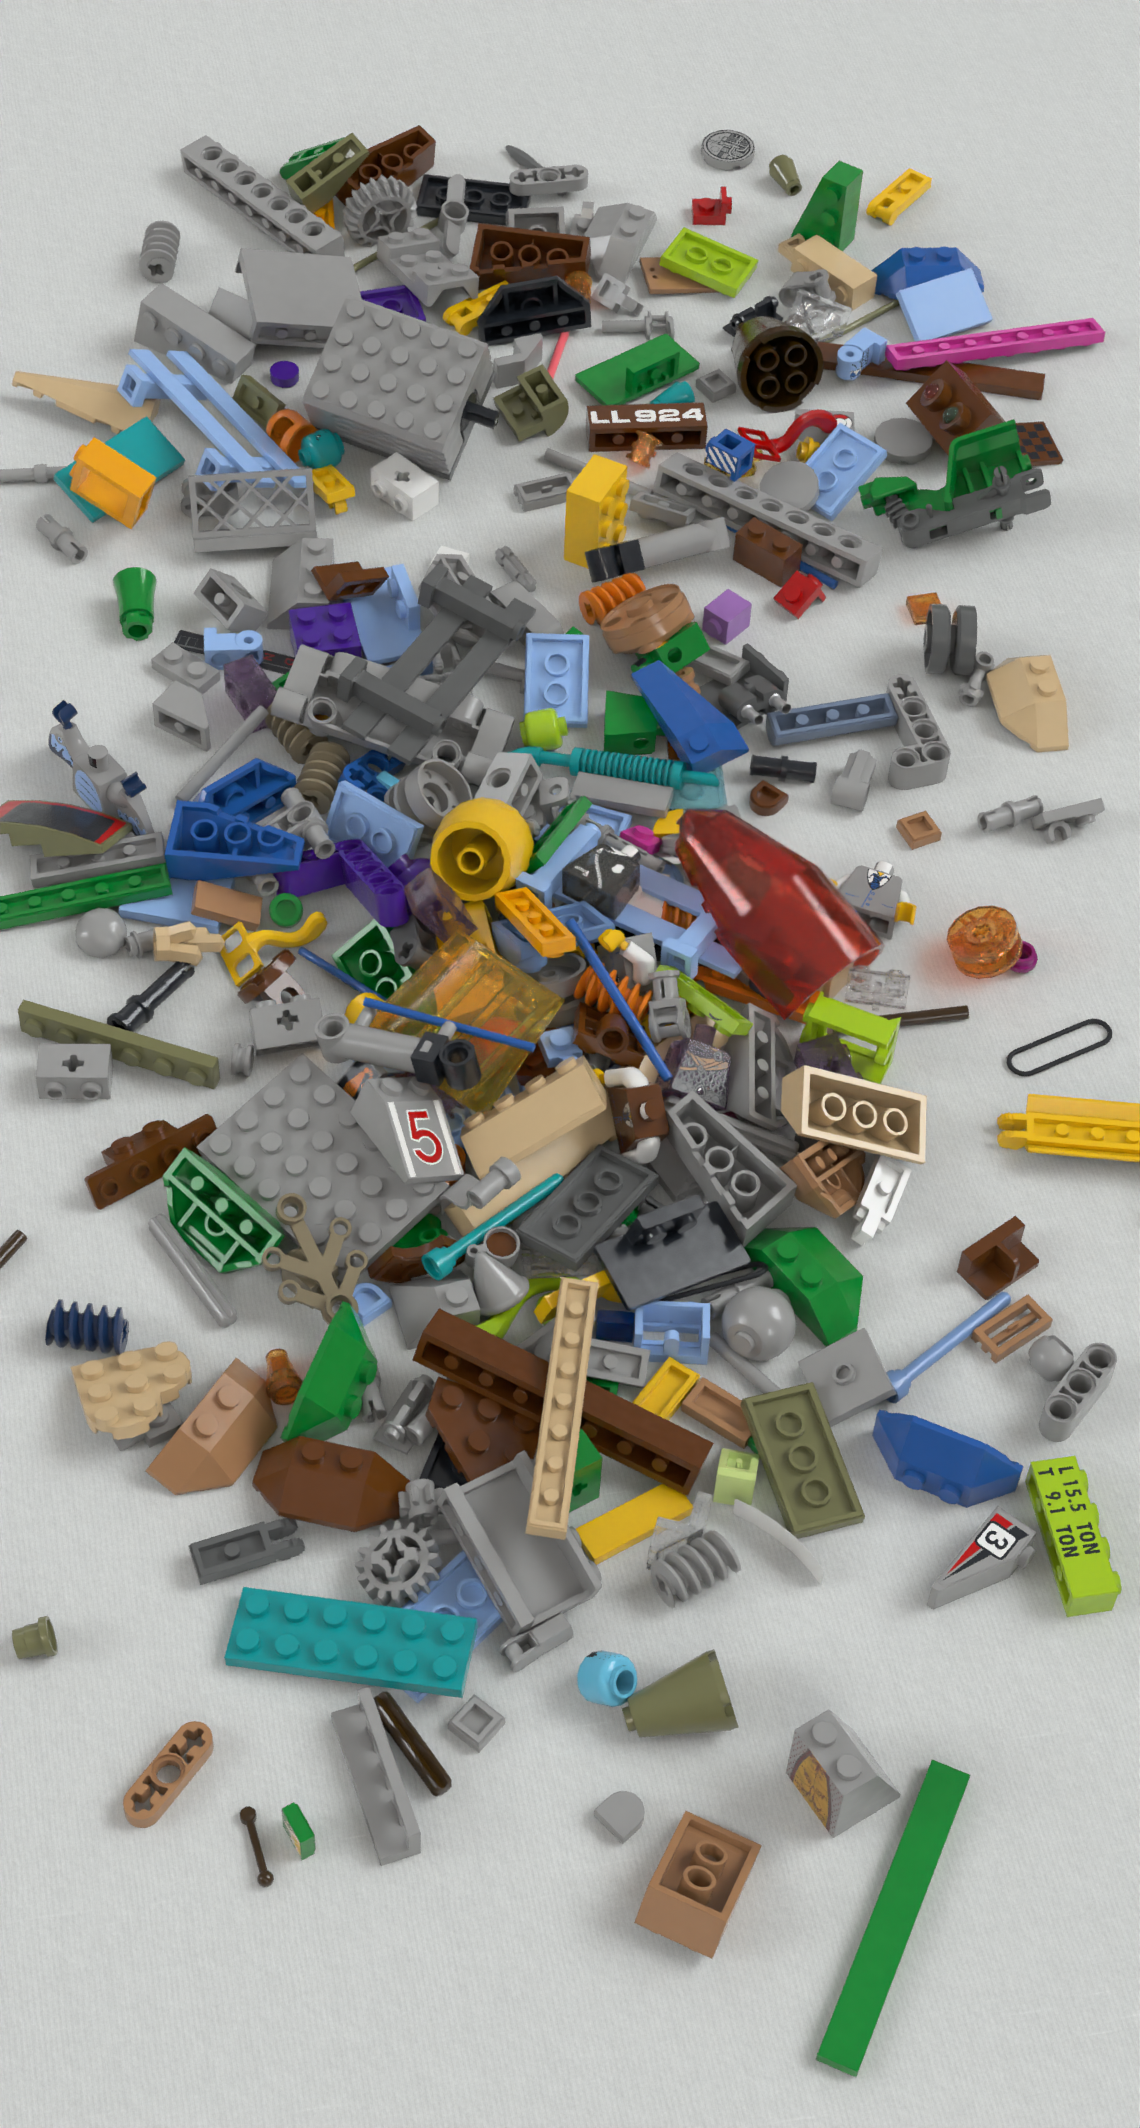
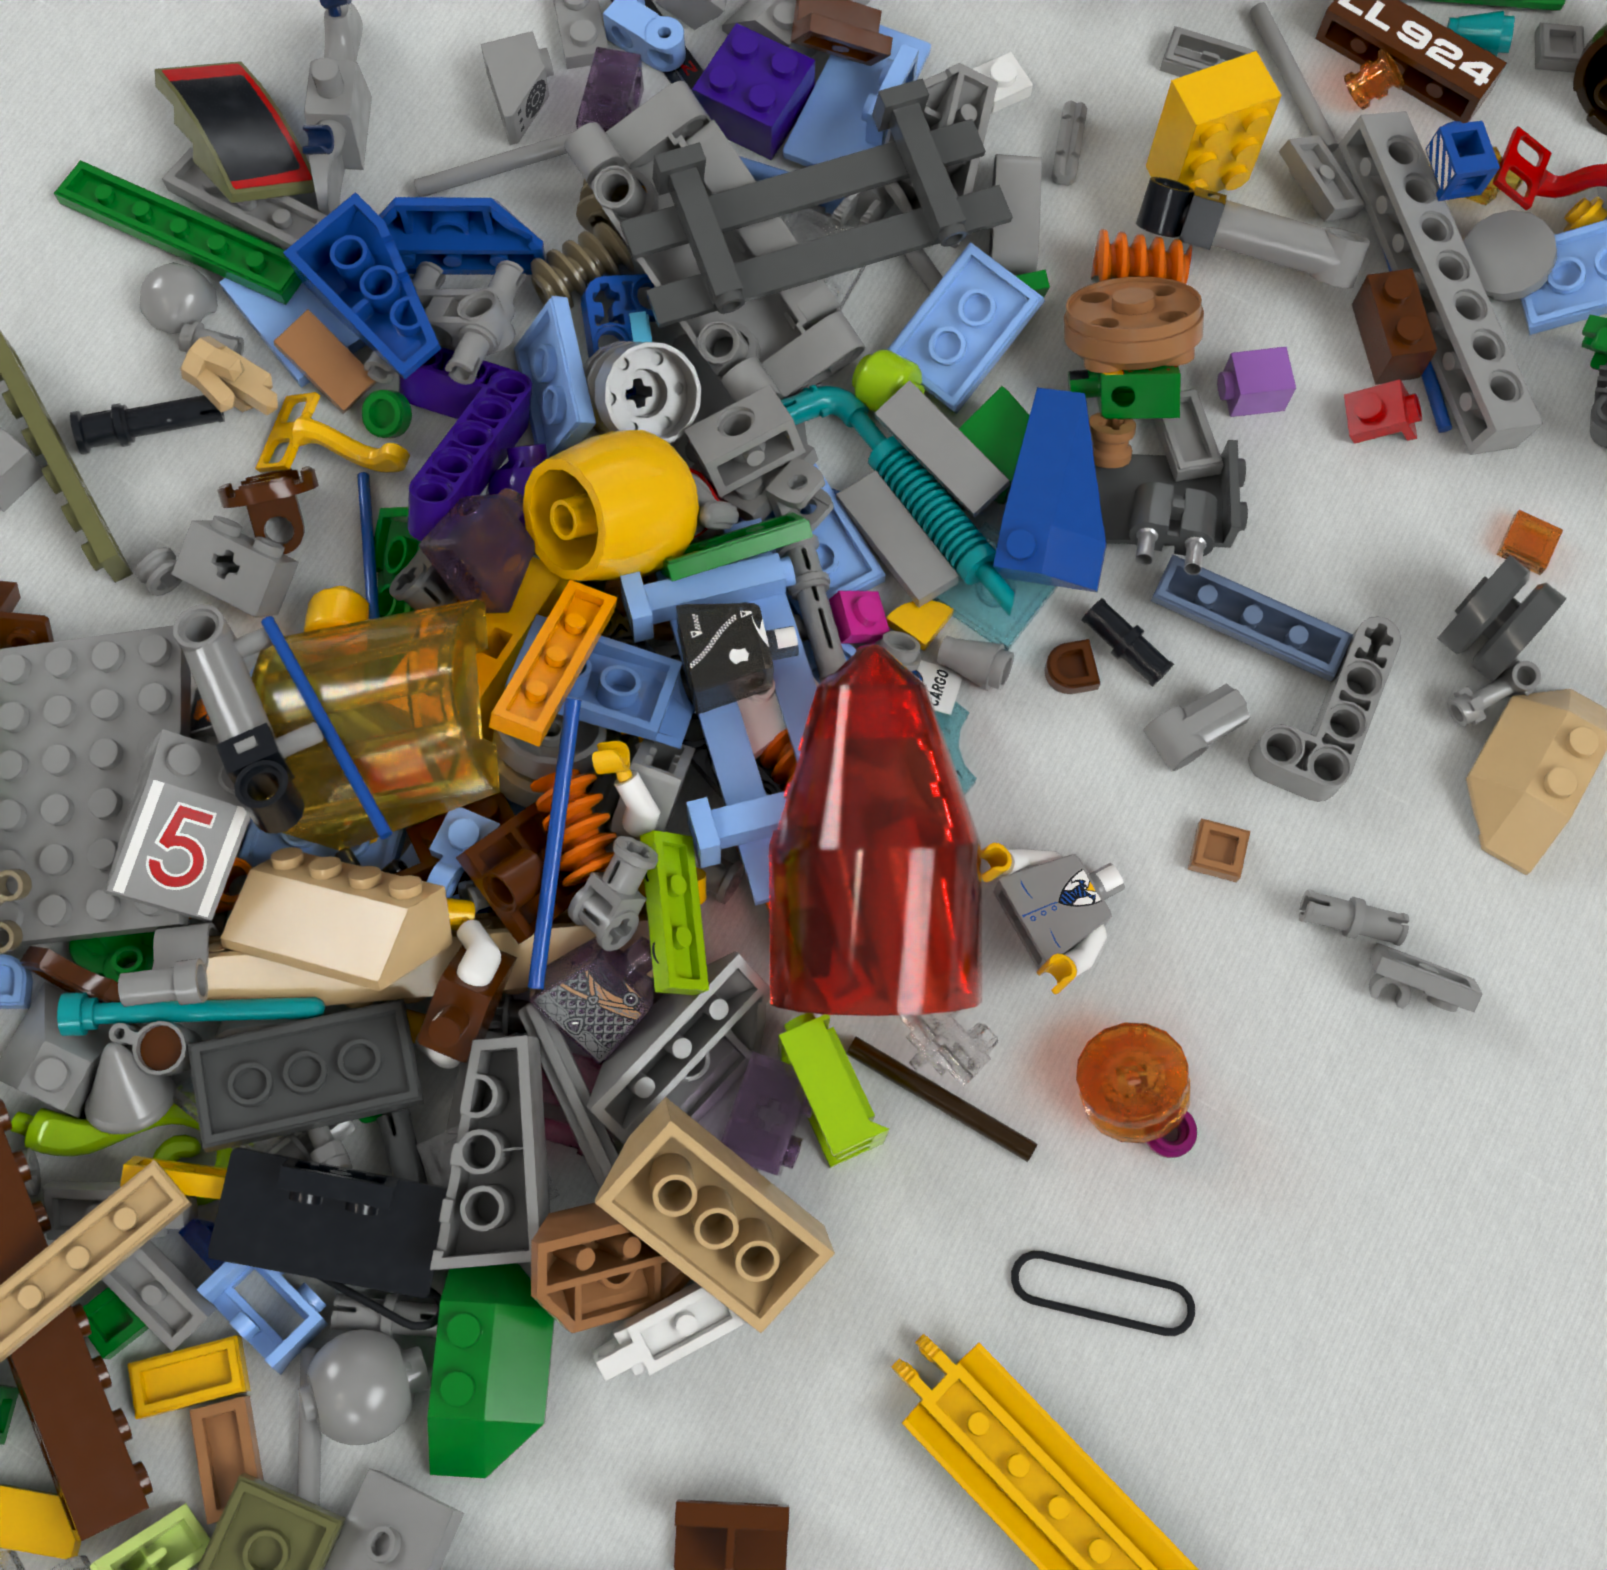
camera: 40 degrees right, 20 degrees up
(608, 734) = (942, 449): none -> light grey tile

